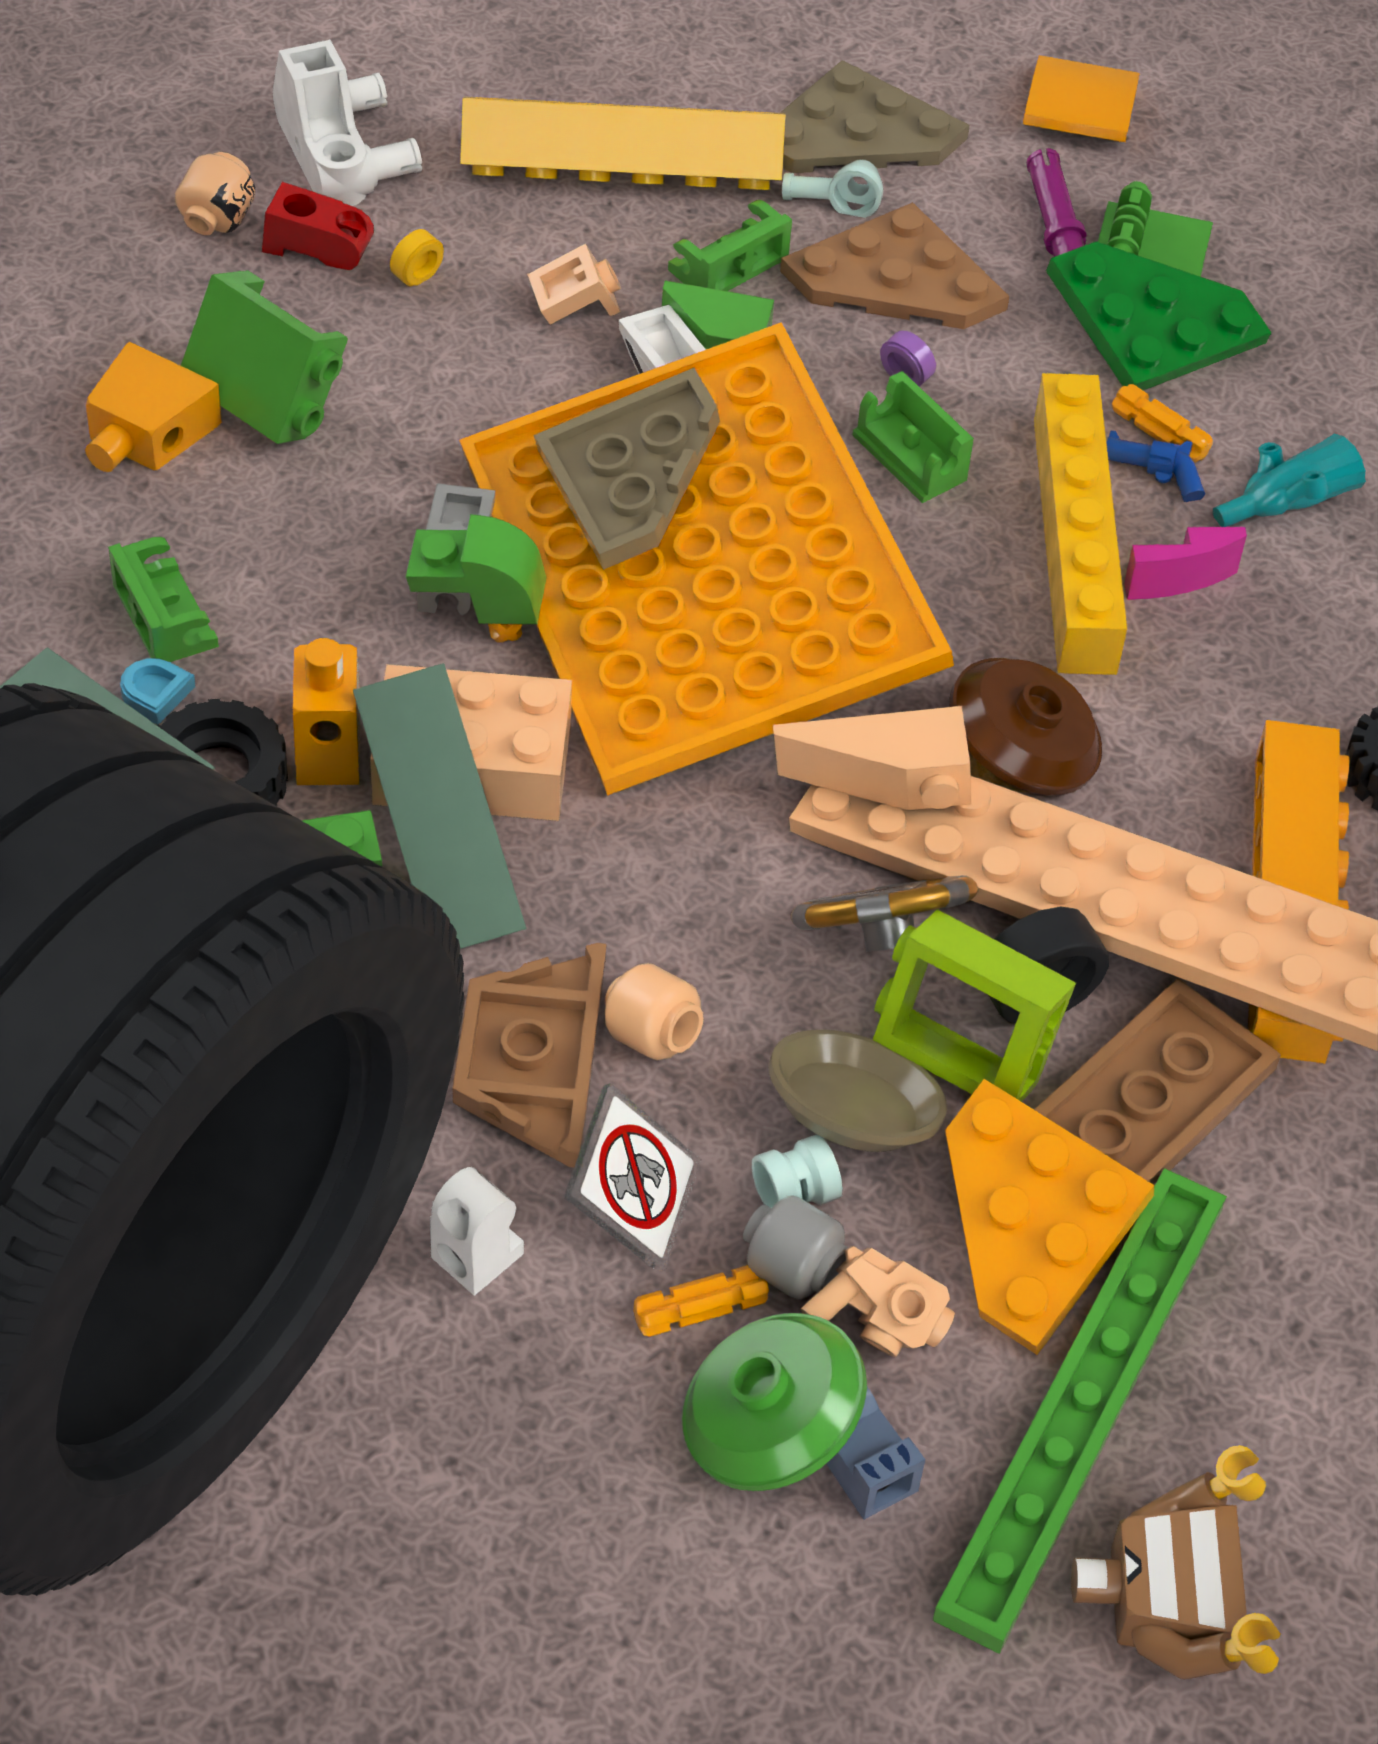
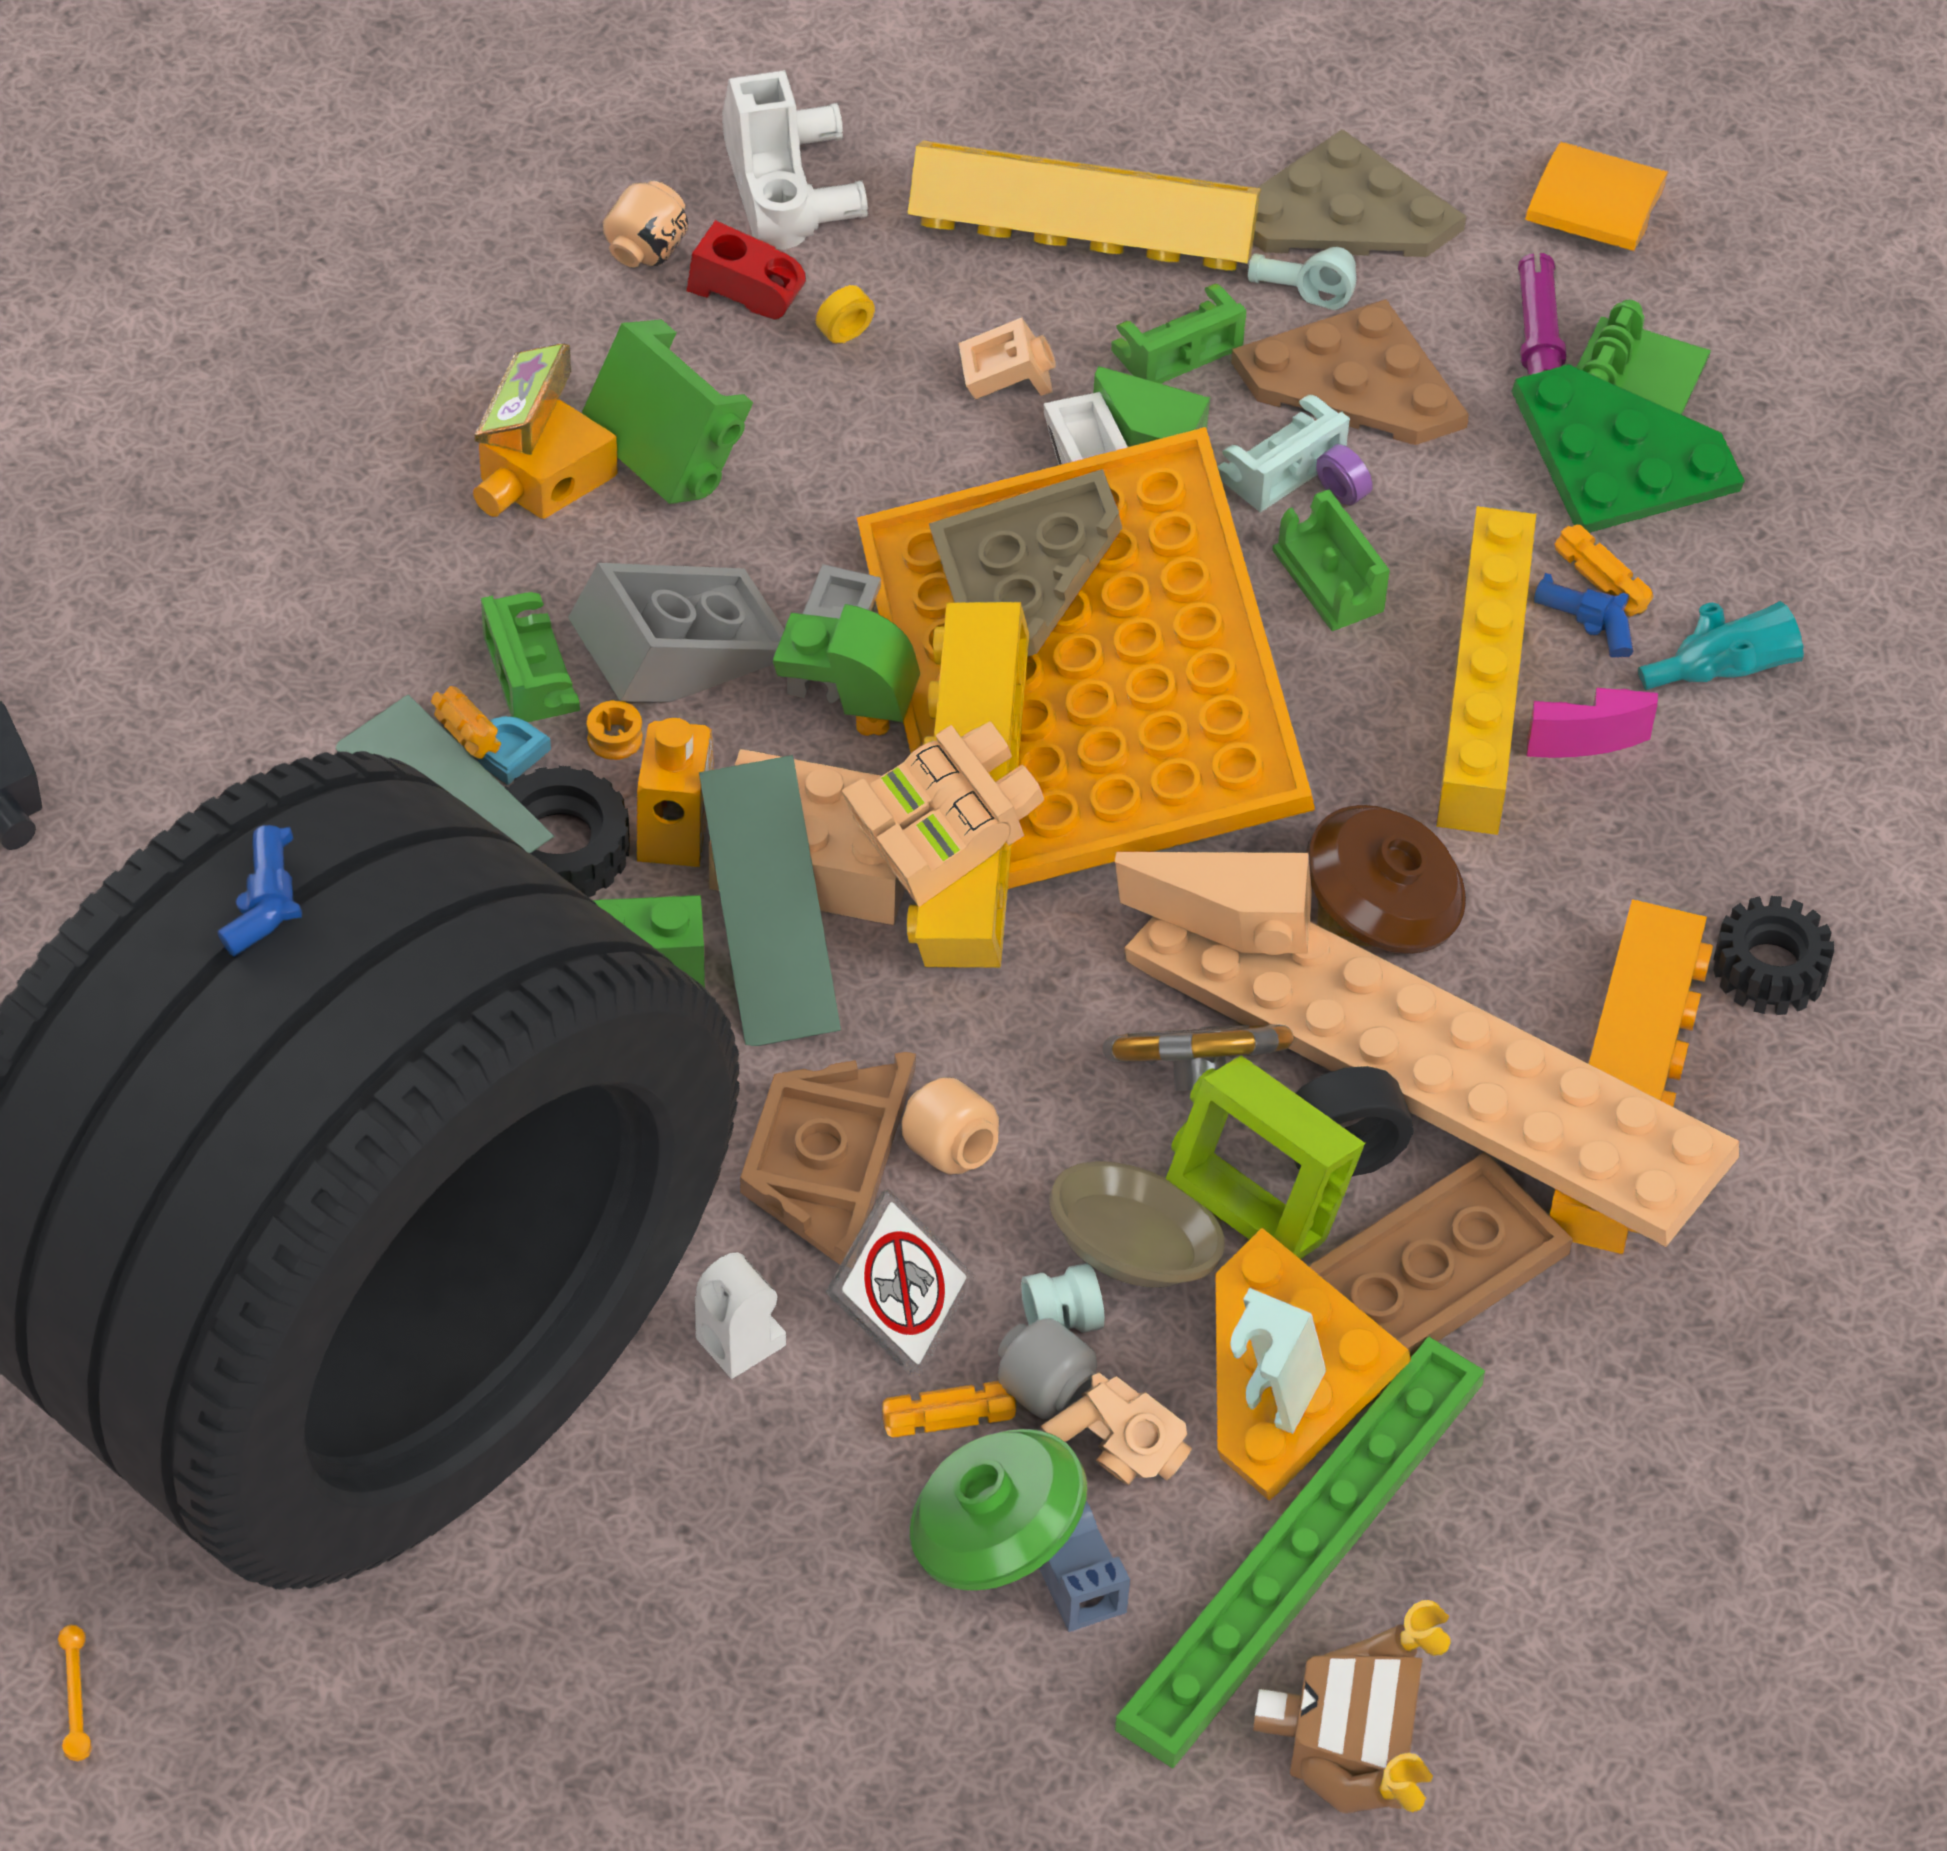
camera: 10 degrees right, 0 degrees up
(109, 667) = (466, 722): none -> light orange axle
(126, 356) = (525, 398): none -> slope
(253, 645) = (609, 714): none -> light orange bush
(299, 559) = (674, 628): none -> light grey slope
(602, 700) = (943, 809): none -> light nougat hips
(619, 677) = (979, 682): none -> yellow brick
(853, 346) = (1286, 457): none -> light aqua hinge
(1040, 1204) = (1285, 1355): none -> light aqua hinge

